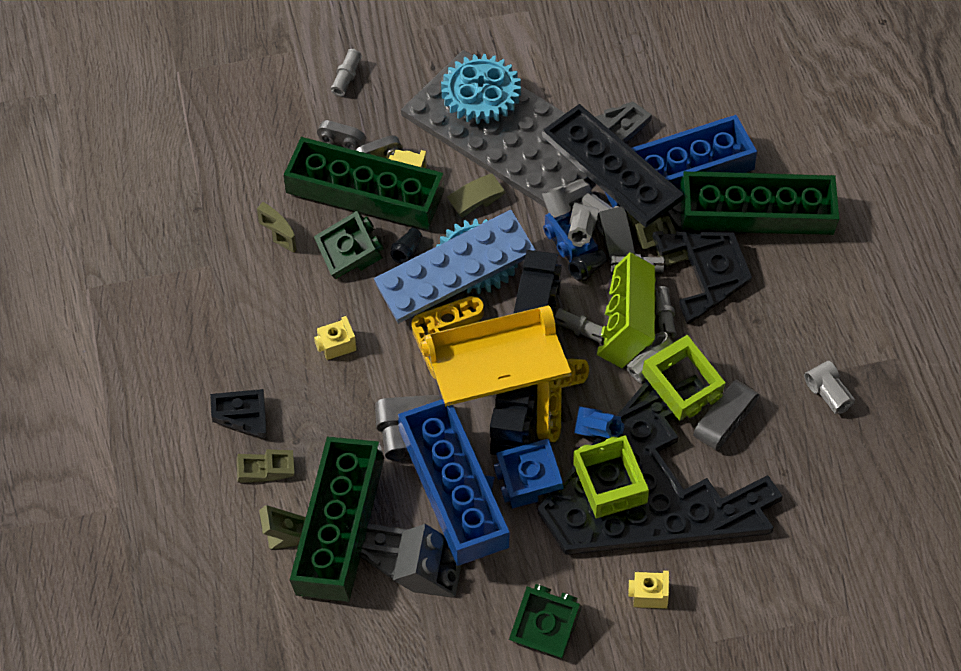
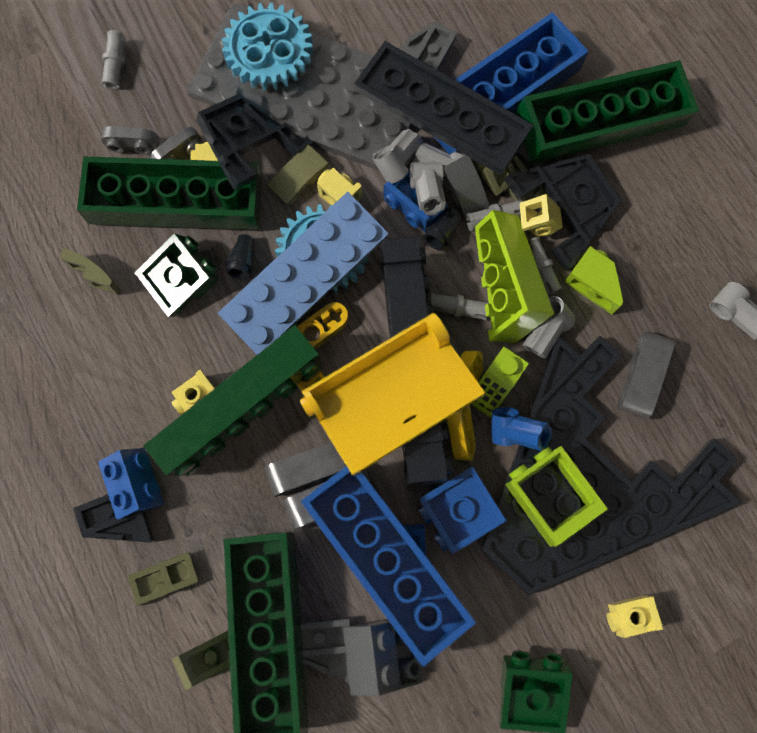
camera: 20 degrees left, 20 degrees up
(262, 386) = (130, 482): none -> blue bracket
(366, 344) = (234, 404): none -> dark green brick
(438, 144) = (239, 127): none -> black wing
(502, 204) = (334, 185): none -> light yellow brick
(595, 386) = (499, 380): none -> lime slope
(668, 357) = (559, 349): lime window -> none
(678, 275) = (542, 222): none -> light yellow brick
(706, 330) = (597, 280): none -> lime slope

